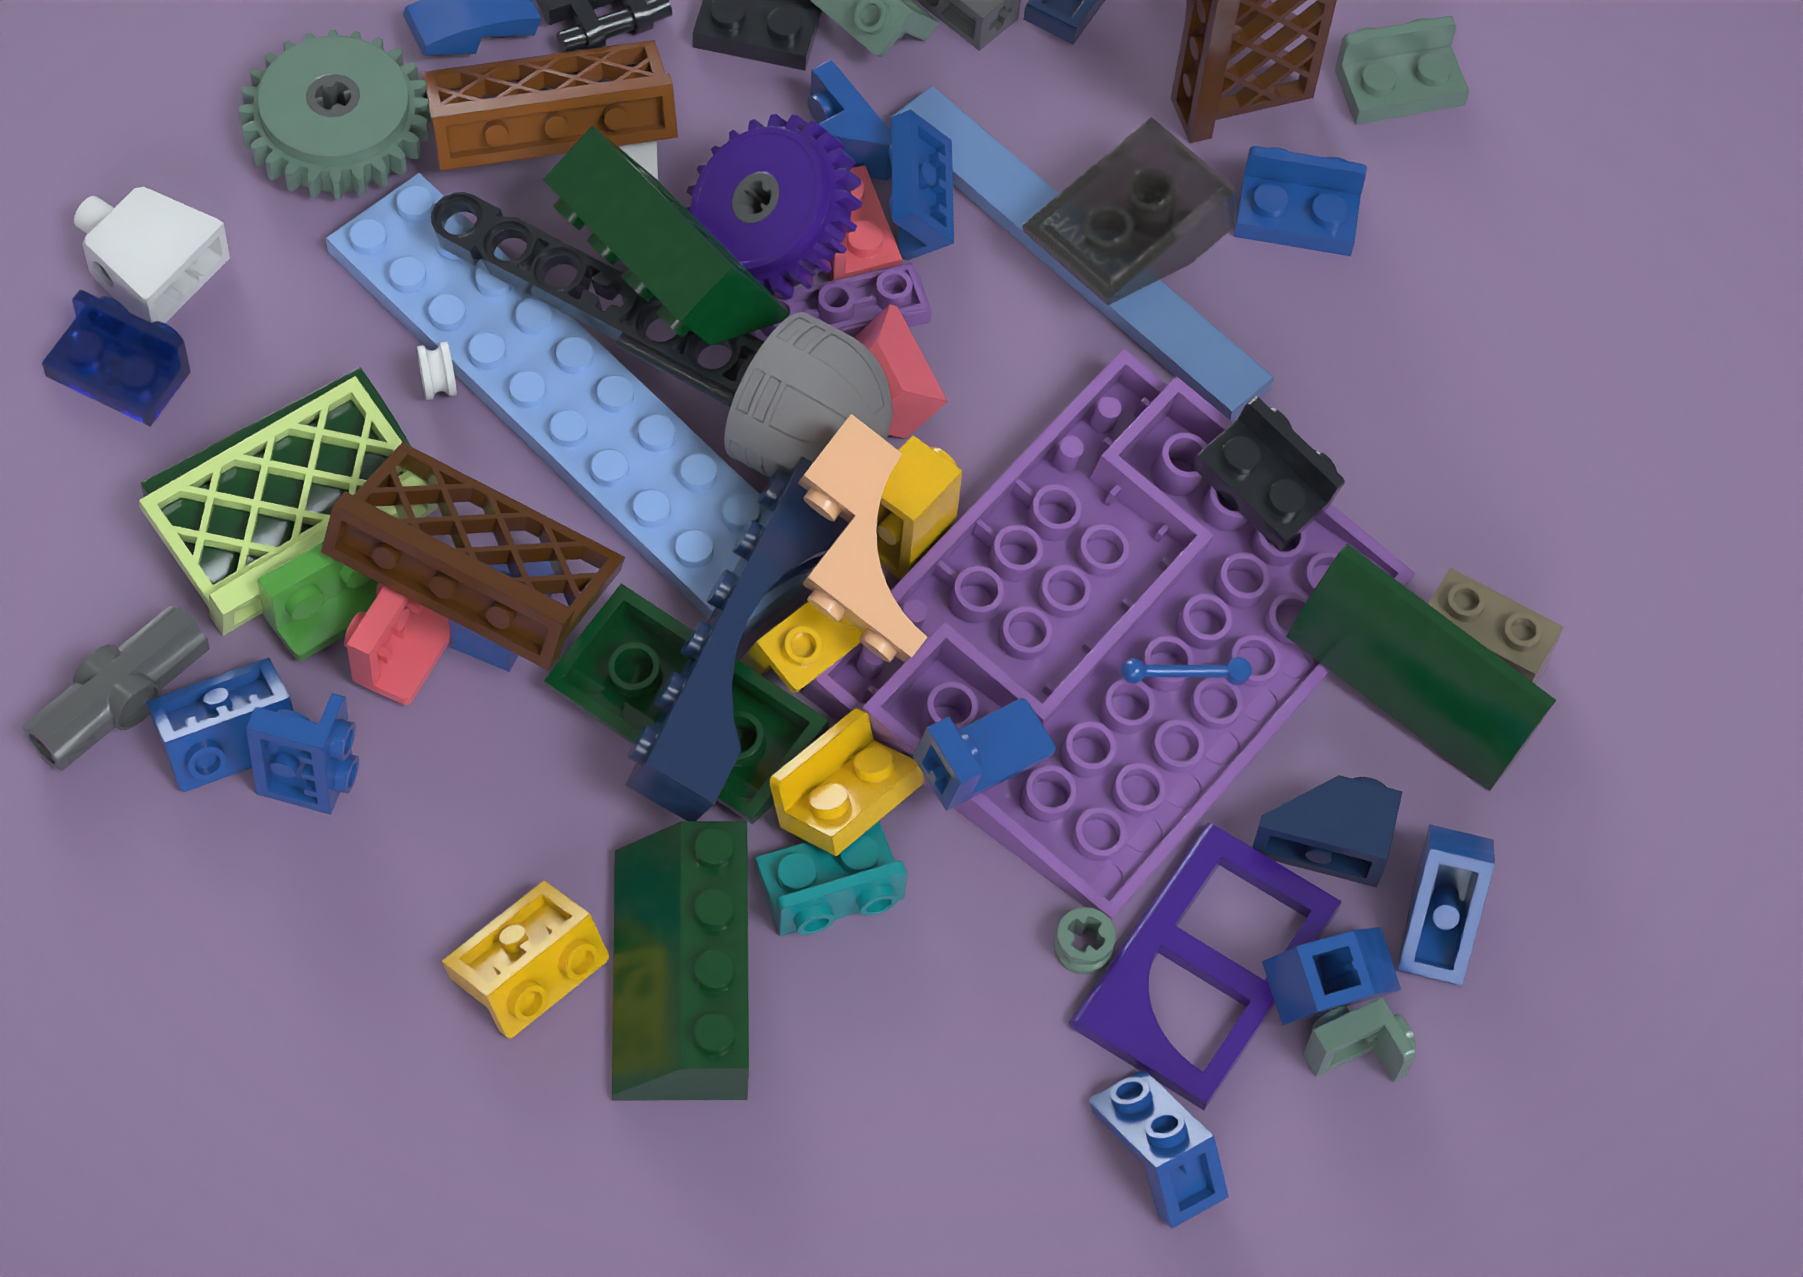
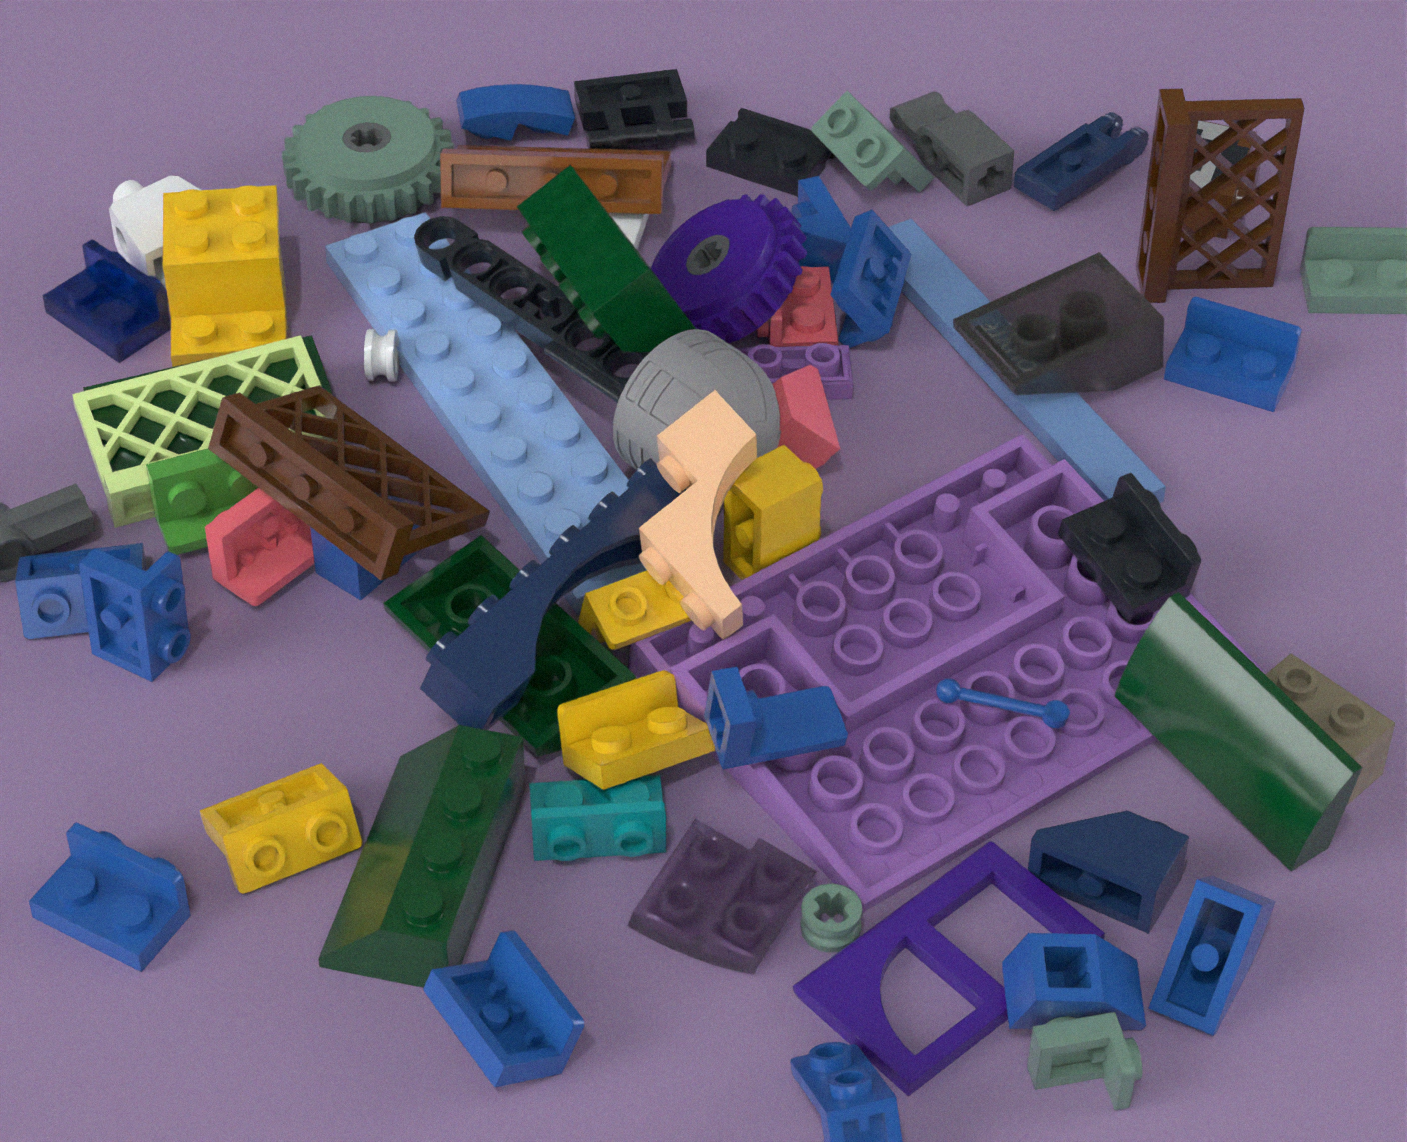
camera: 20 degrees right, 15 degrees down
(240, 308) = (223, 271): none -> yellow bracket
(389, 1077) = (113, 898): none -> blue bracket
(817, 1117) = (507, 1013): none -> blue bracket
(977, 943) = (721, 899): none -> clear purple slope

